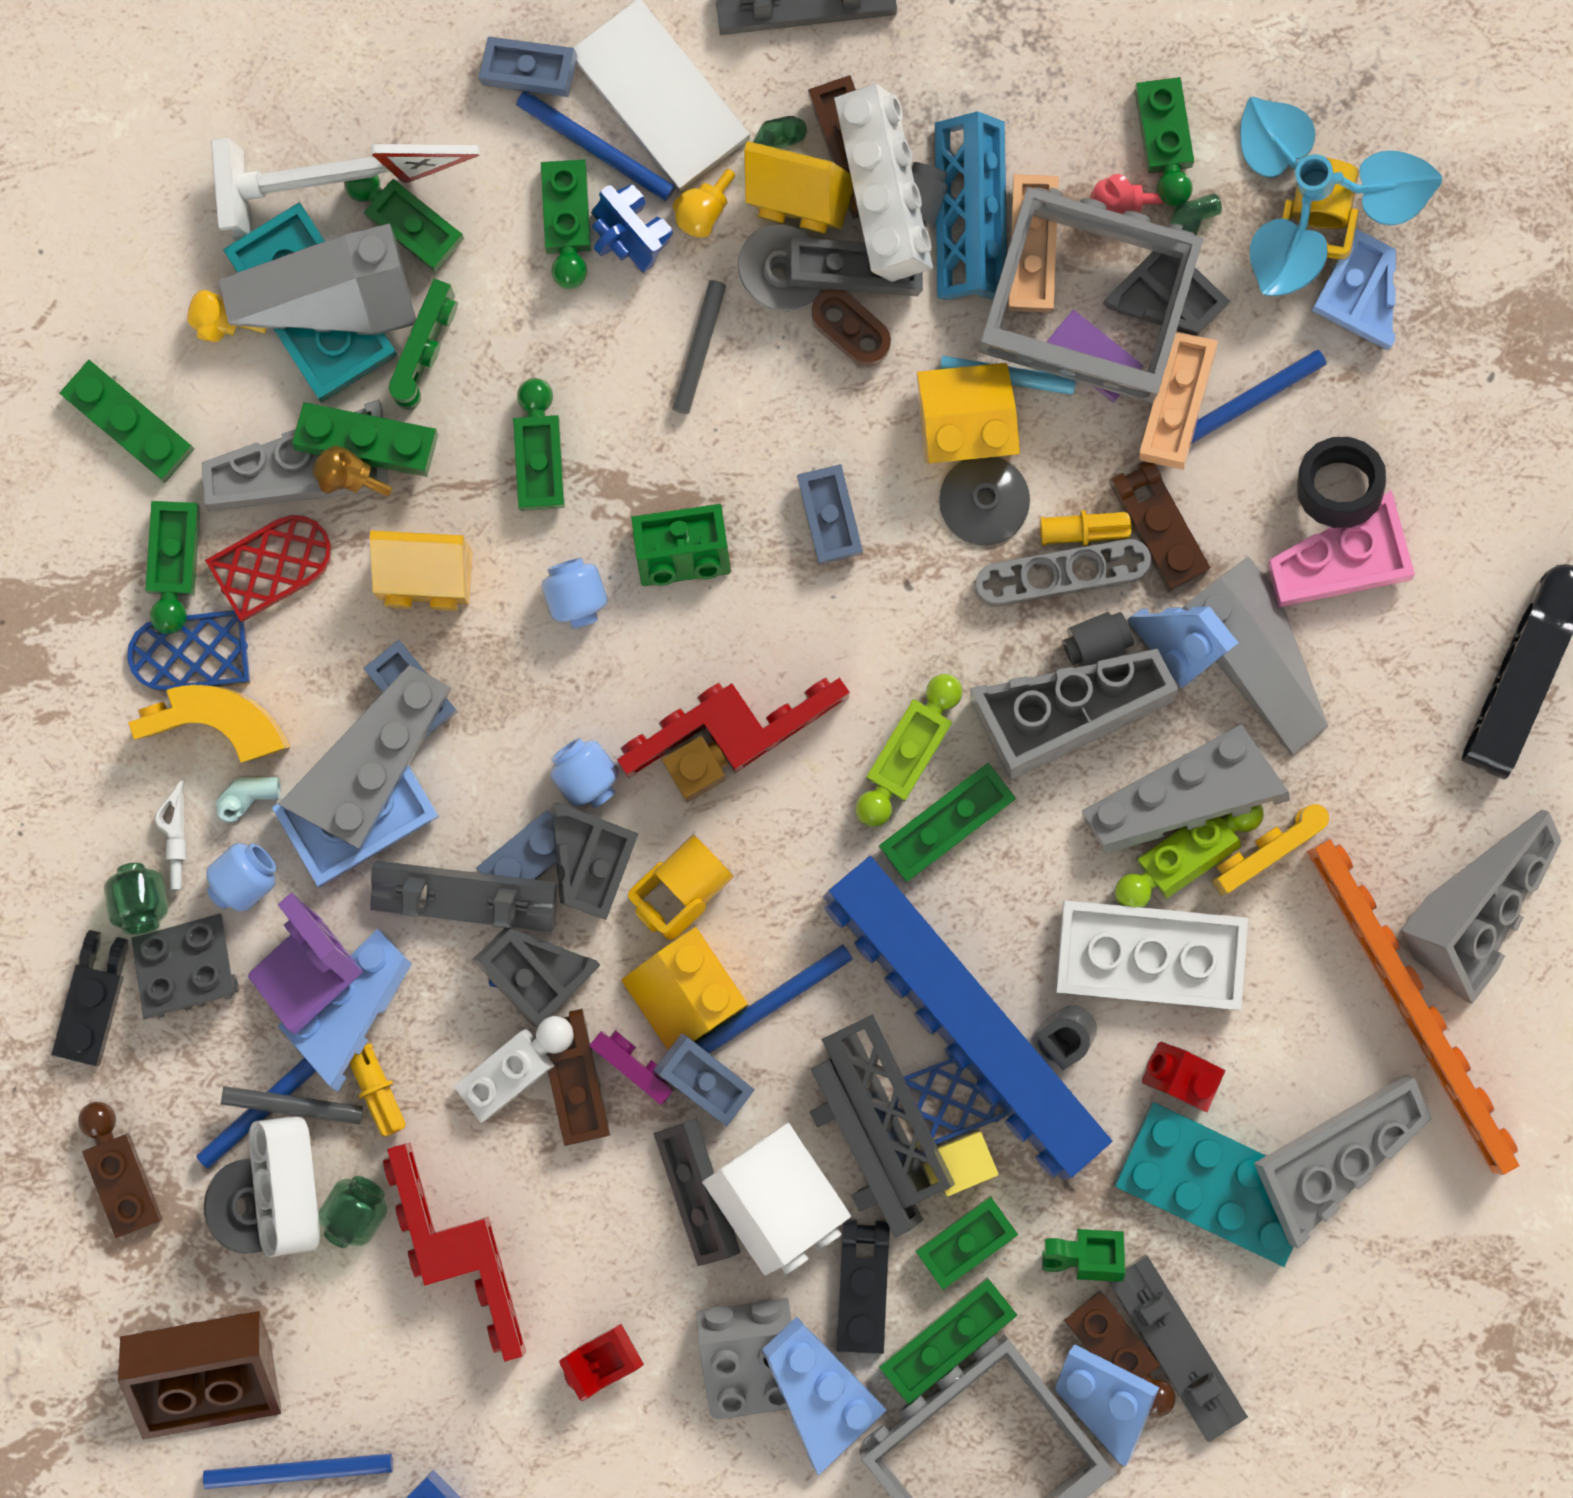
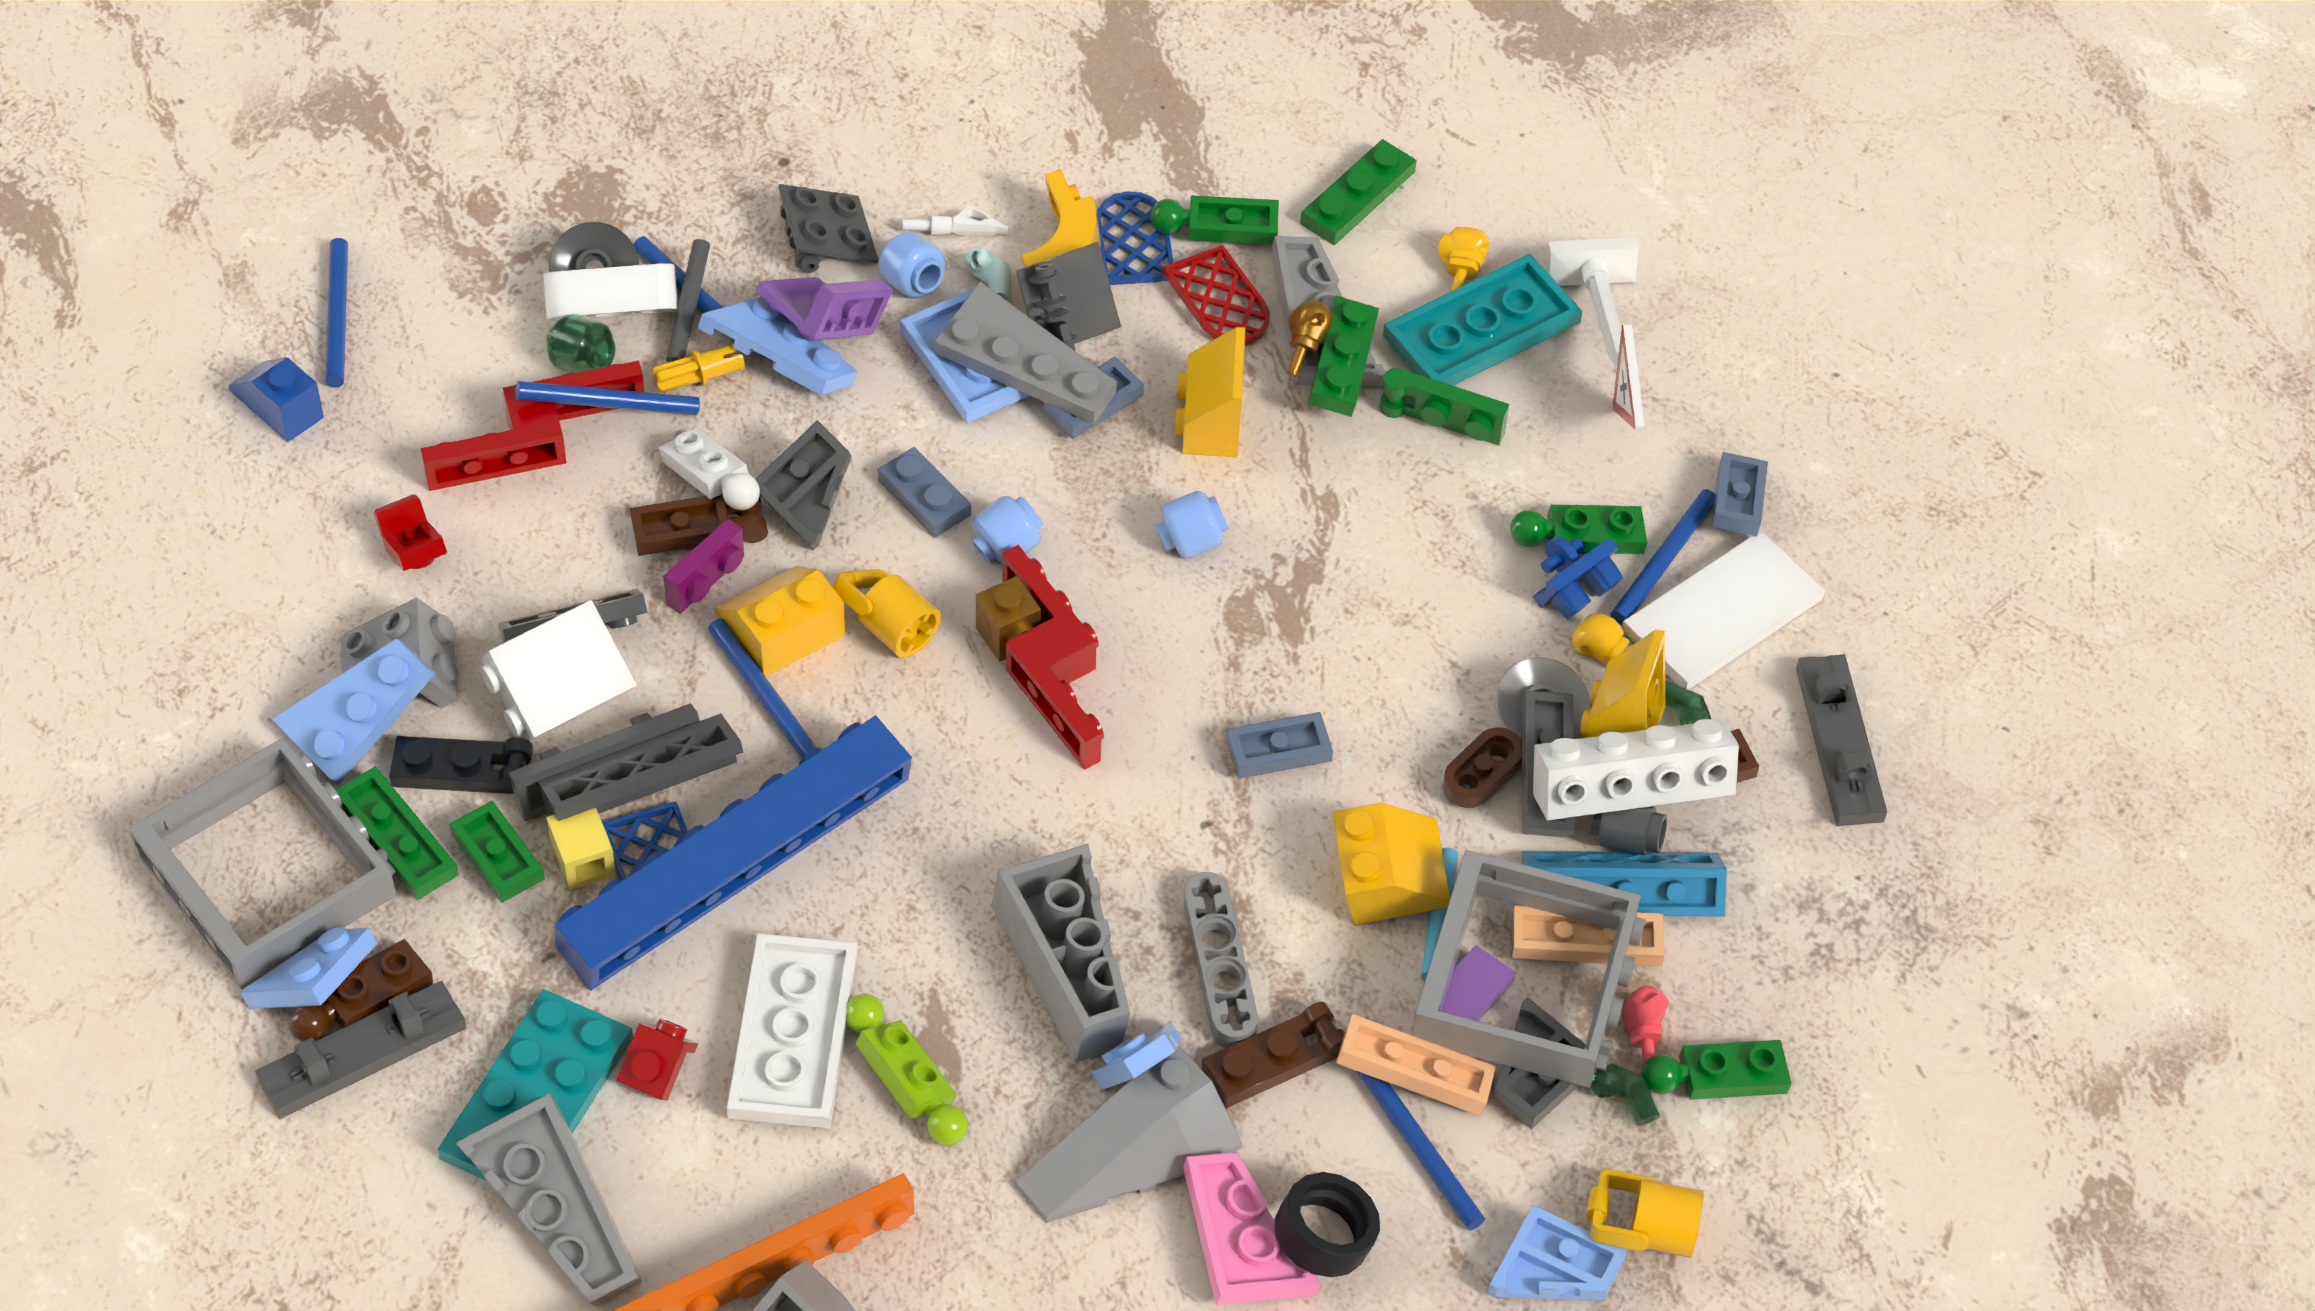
camera: 90 degrees right, 30 degrees down
(90, 1003) = (800, 164): black hinge -> none
(117, 1172) = (636, 180): reddish brown plate -> none
(136, 899) = (894, 189): clear green head -> none
(199, 1375) = (438, 232): reddish brown slope -> none
(296, 714) = (1070, 295): none -> dark grey hinge
(334, 285) = (1497, 327): light grey wedge -> none
(412, 221) = (1571, 399): green plate -> none
(431, 1178) = (607, 398): none -> blue bar
(464, 896) = (884, 433): dark grey hinge -> none
(538, 449) = (1340, 500): green plate -> none
(589, 859) = (919, 533): dark grey wing -> none
(681, 545) = (1243, 615): green bracket -> none
(699, 347) = (1455, 640): dark grey bar -> none
(704, 1079) = (686, 620): sand blue plate -> none
(908, 750) = (1023, 809): lime plate -> none
(947, 822) = (944, 842): green plate -> none
(980, 522) = (1296, 910): dark grey dish -> none
(1067, 1035) = (715, 952): dark grey plate -> none
(1084, 528) = (1269, 977): yellow axle -> none
(1094, 1253) = (468, 964): green plate -> none
(1098, 639) = (1146, 984): dark grey brick -> none
(1201, 785) = (978, 1076): light grey wing -> none
(1271, 847) = (906, 1147): yellow plate -> none
(1280, 134) = (1732, 1182): medium azure plant -> none

